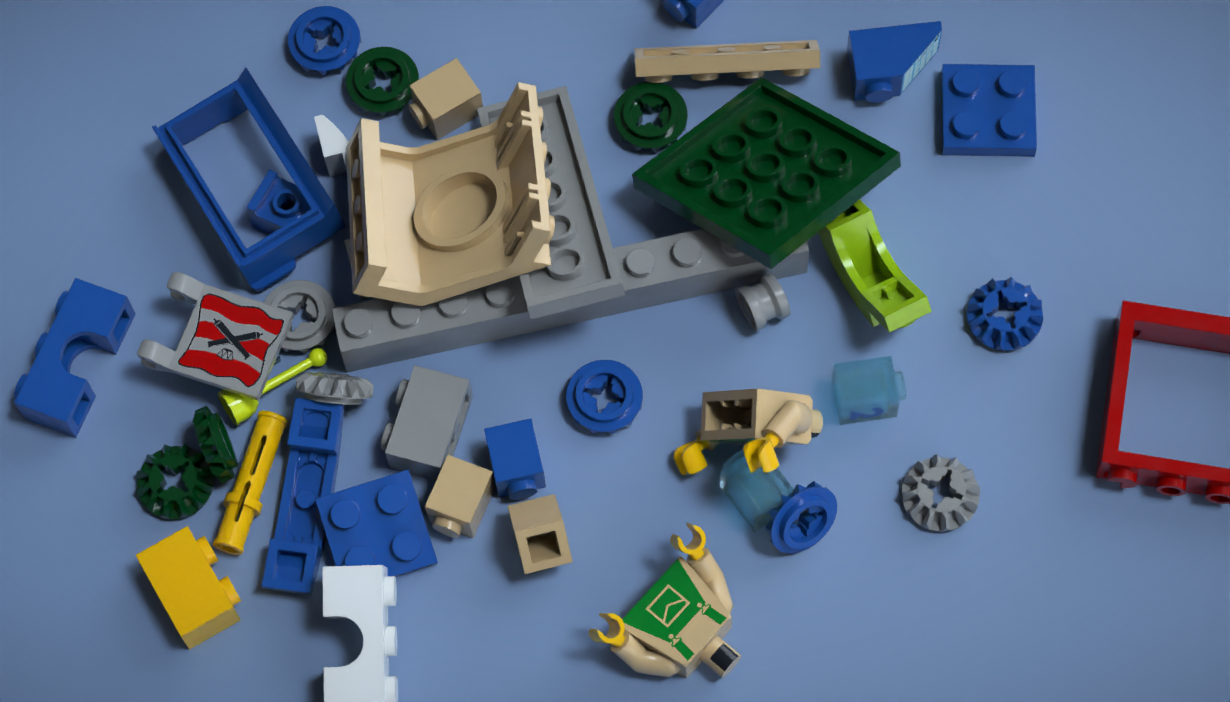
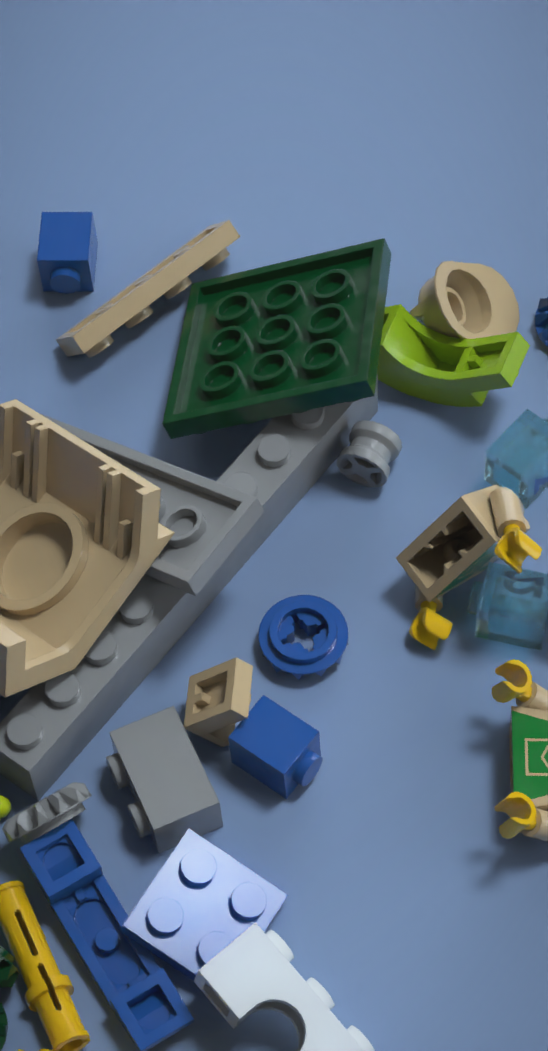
camera: 40 degrees left, 10 degrees down
(459, 497) = (257, 820): tan brick -> none
(502, 398) = (218, 700): none -> tan bracket
(540, 534) = (364, 790): tan brick -> none
(652, 98) = (109, 367): dark green gear -> none
(889, 58) = (285, 196): blue slope -> none
(933, 245) = (467, 302): none -> tan piece
(988, 110) = (406, 180): blue plate -> none

